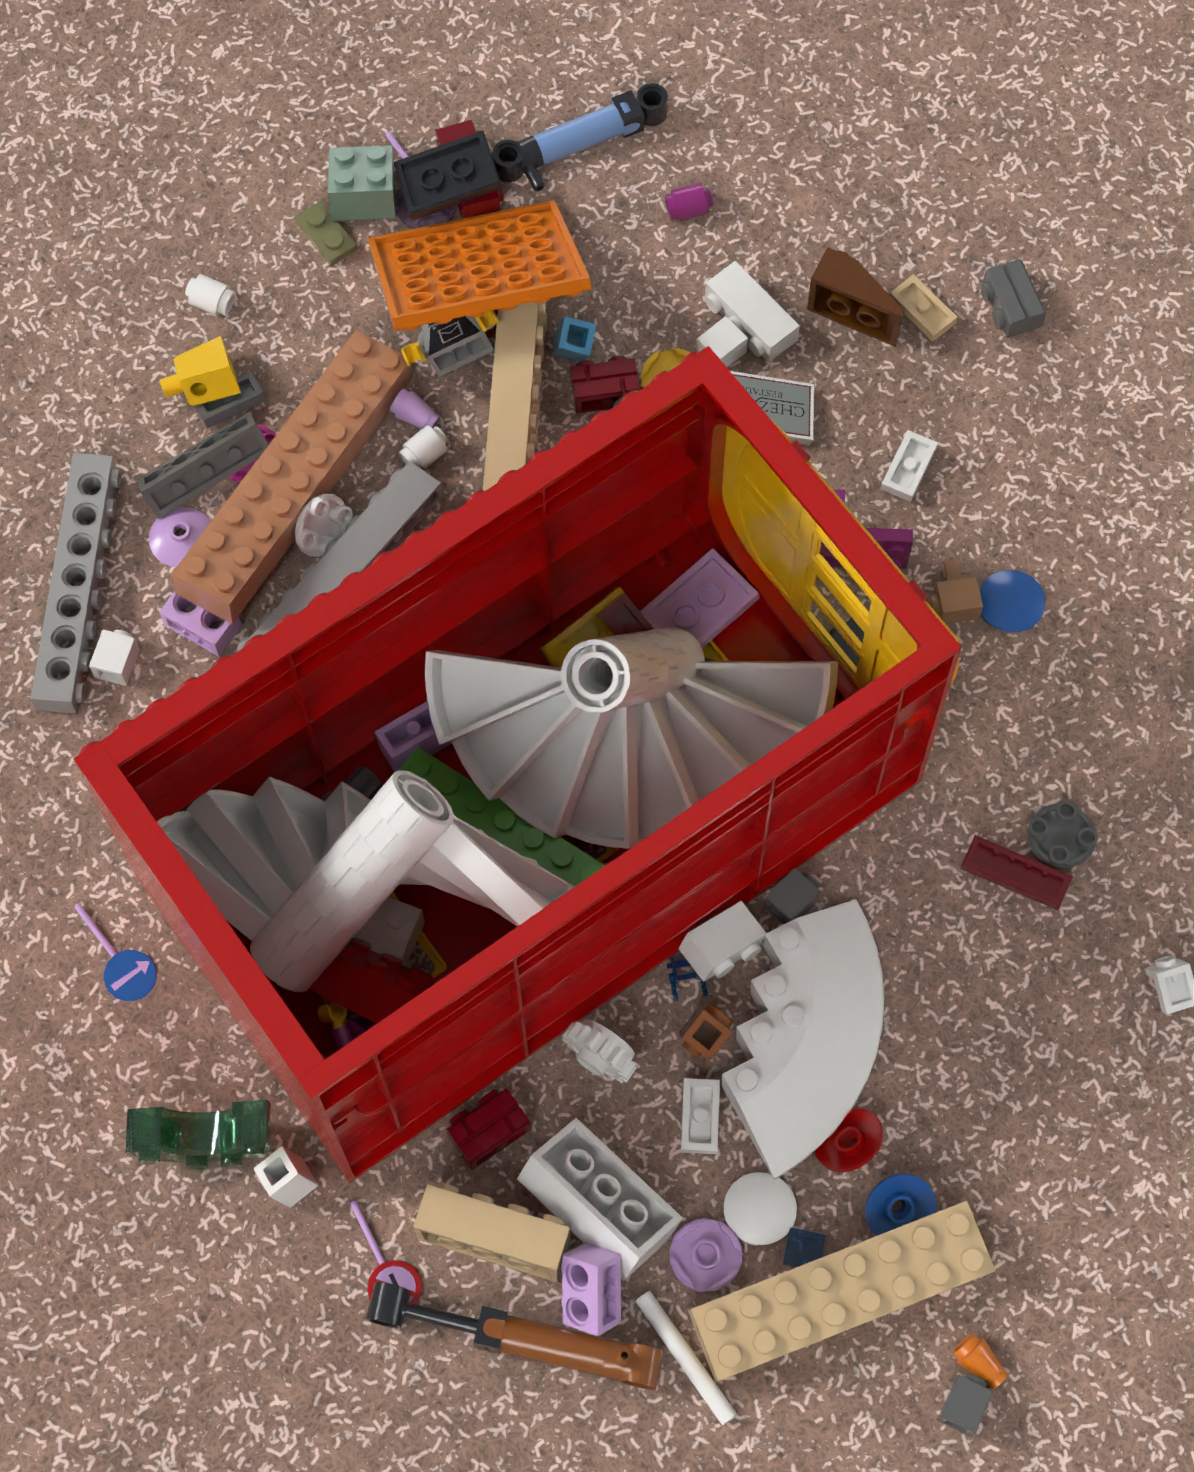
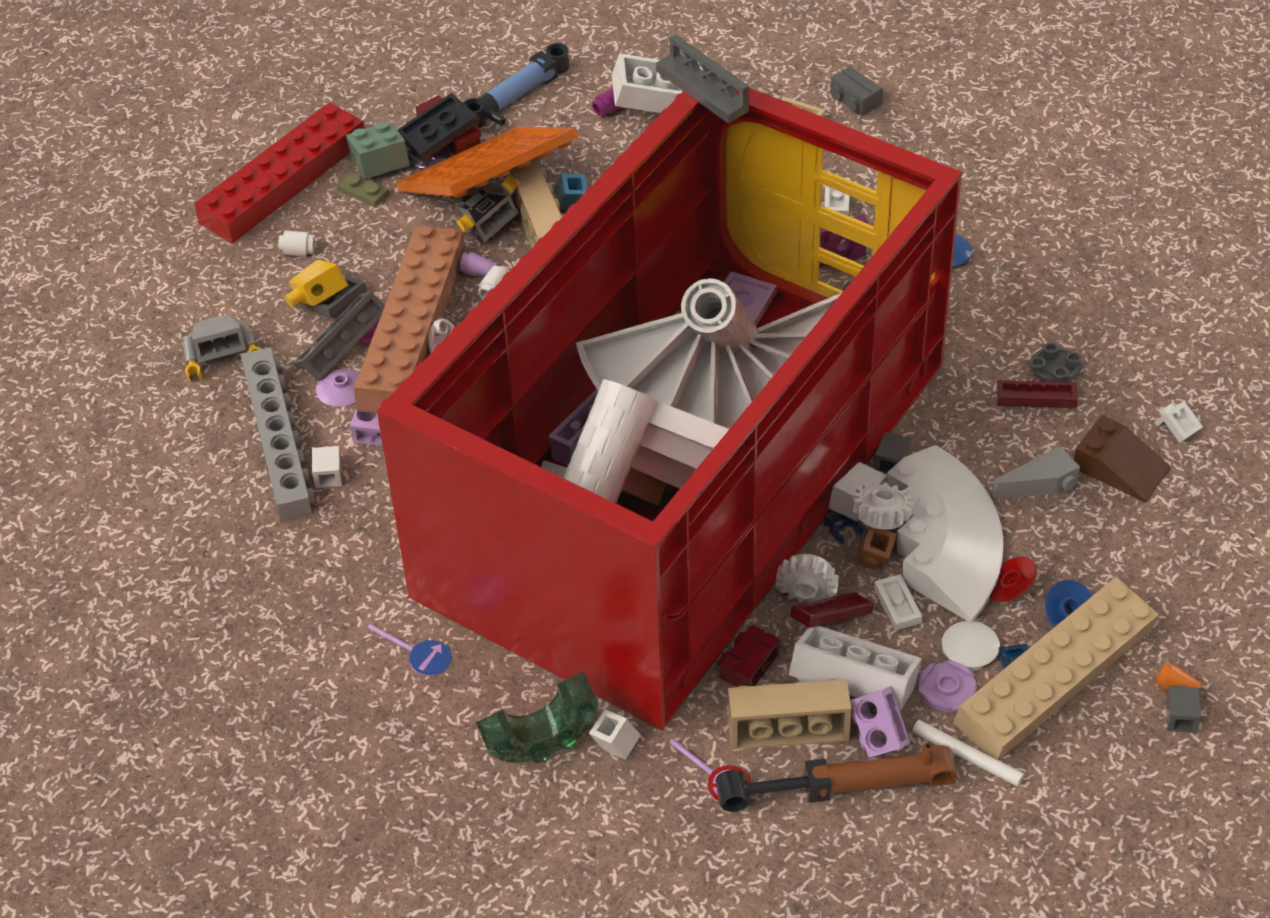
camera: 20 degrees left, 20 degrees down
(56, 416) = (216, 339): none -> light grey torso
(230, 174) = (277, 173): none -> red brick
(611, 1103) = (831, 609): none -> dark red plate
(693, 375) = (703, 84): none -> dark grey fence
(726, 1007) = (882, 505): none -> white gear
(757, 211) = (640, 86): none -> white brick
(964, 1002) = (1040, 476): none -> light grey slope
(1071, 1016) = (1120, 459): none -> reddish brown slope

